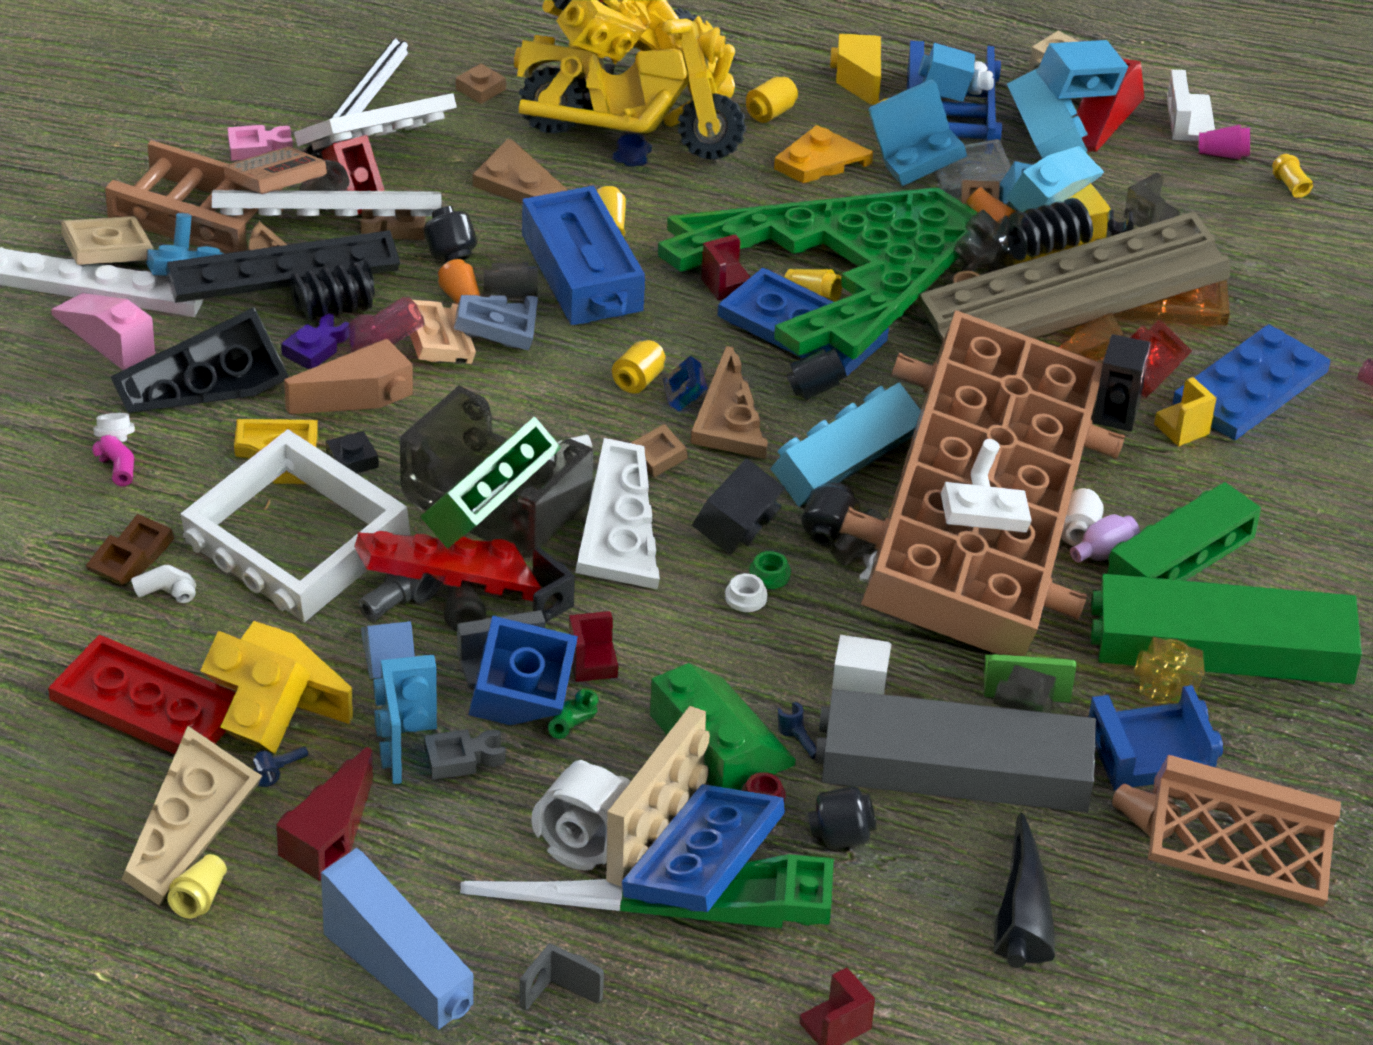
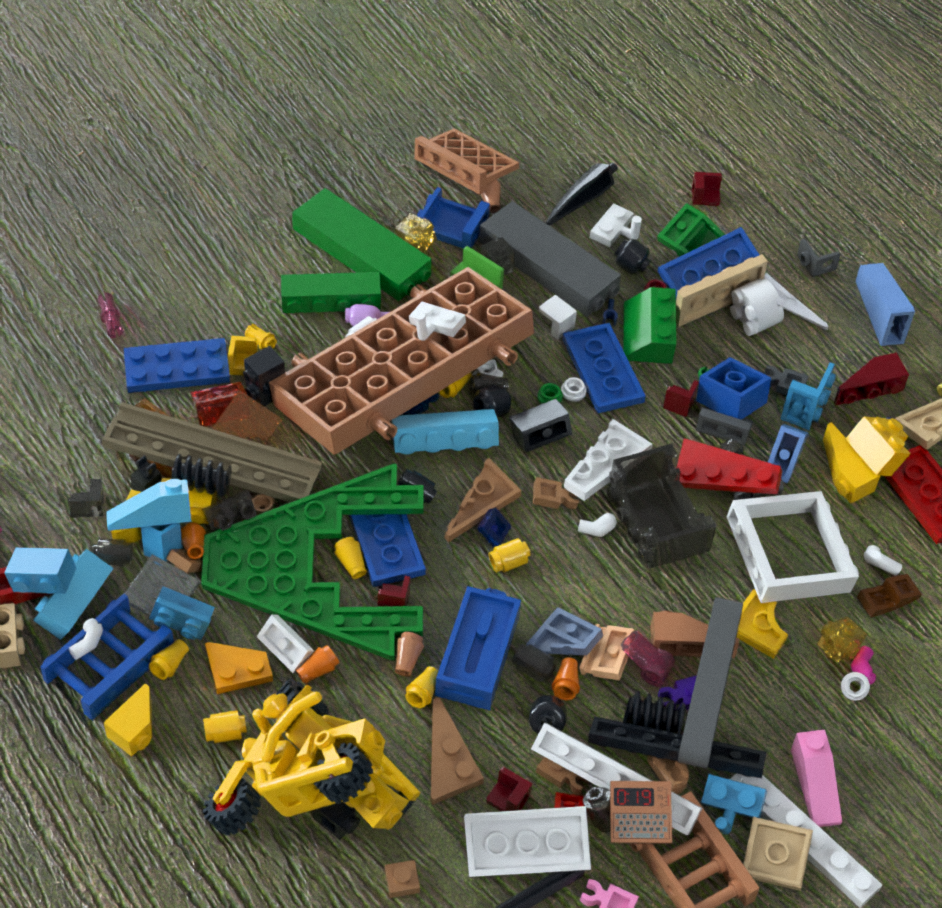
camera: 145 degrees left, 10 degrees up
(160, 452) = (841, 639): none -> clear yellow brick
(213, 366) = (755, 702): black wedge -> none
(287, 306) = (710, 683): none -> dark grey beam
(353, 452) = (718, 589): black plate -> none
(433, 175) = (510, 792): none -> dark red panel
(490, 482) = (683, 475): green brick -> none
(555, 580) = (671, 429): black bracket -> none
(655, 230) = (408, 651): none -> nougat cone
(734, 639) = (603, 368): none -> blue plate
(738, 185) = (318, 664): none -> orange cone
(776, 181) = (284, 643): none -> white plate
(924, 871) = (614, 224): none -> white plate
(950, 70) = (110, 642): dark azure brick -> none
(1197, 452) = (263, 338): none -> yellow pin

